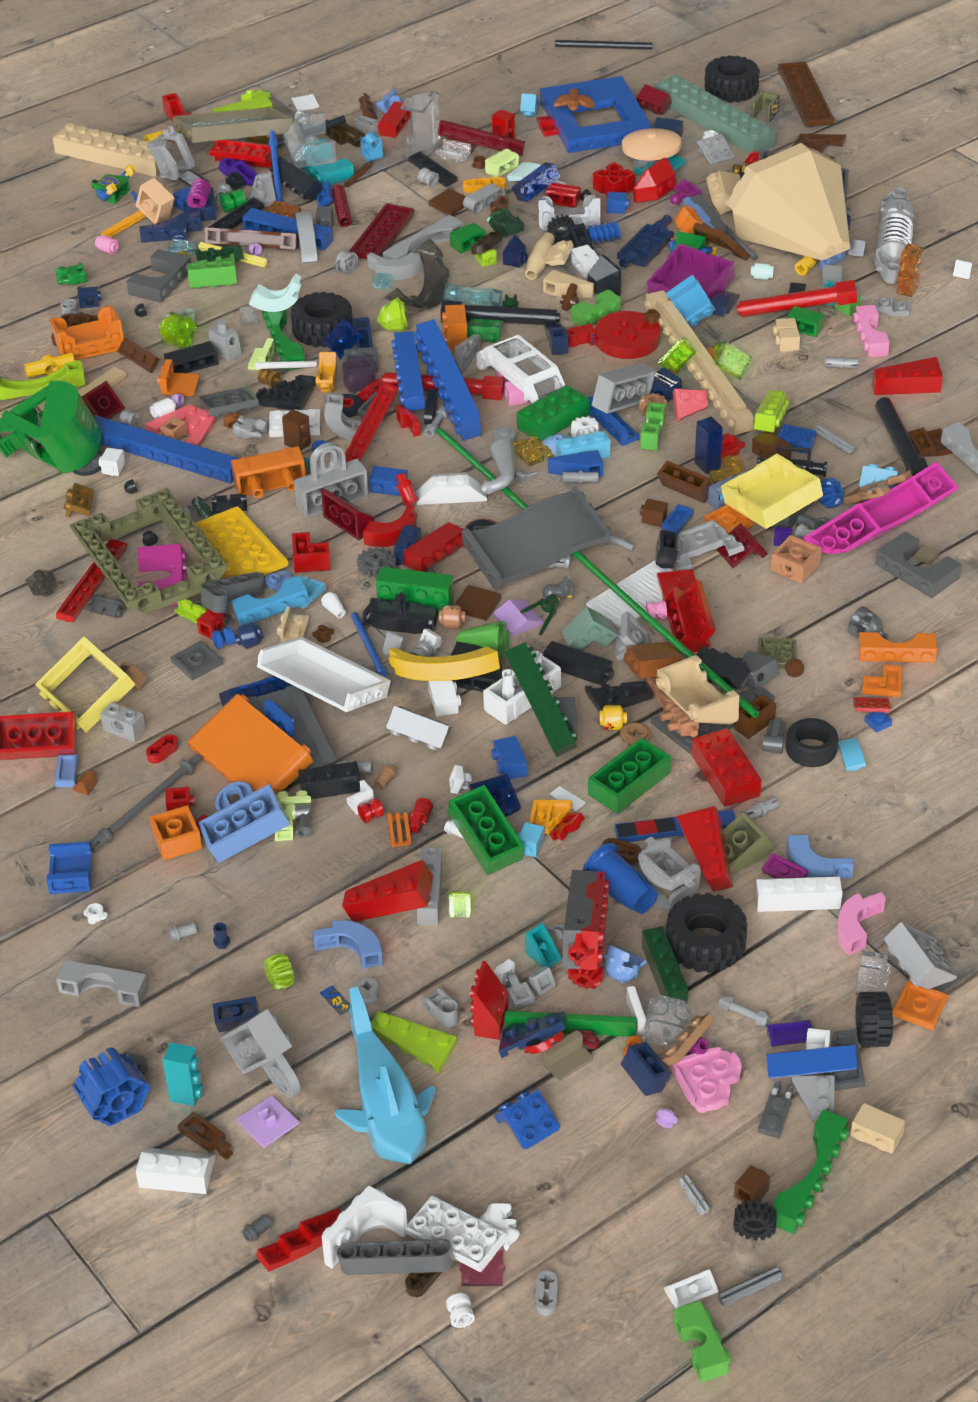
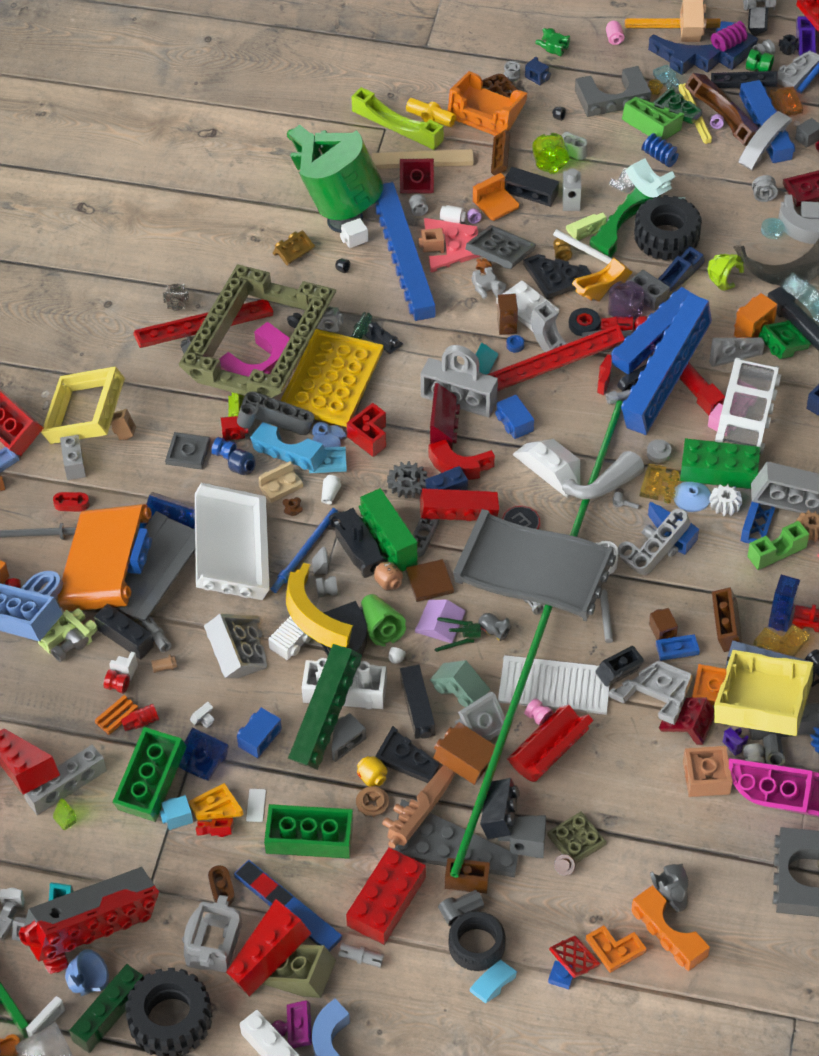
camera: 50 degrees right, 10 degrees up
(178, 798) = (19, 552): red brick -> none
(244, 284) = (660, 150): none -> blue piece
(268, 471) = (435, 331): orange piece -> none
(342, 338) = (655, 258): clear blue brick -> none
(406, 489) = (510, 436): red hinge -> none
(432, 638) = (347, 582): white tile -> none
(582, 443) = (710, 522): medium azure arch -> none
(588, 486) = (656, 539): none -> light grey beam
(625, 882) = (175, 906): blue piece -> none
(680, 579) = (591, 701): red plate -> none
(695, 695) = (437, 814): tan windscreen -> none

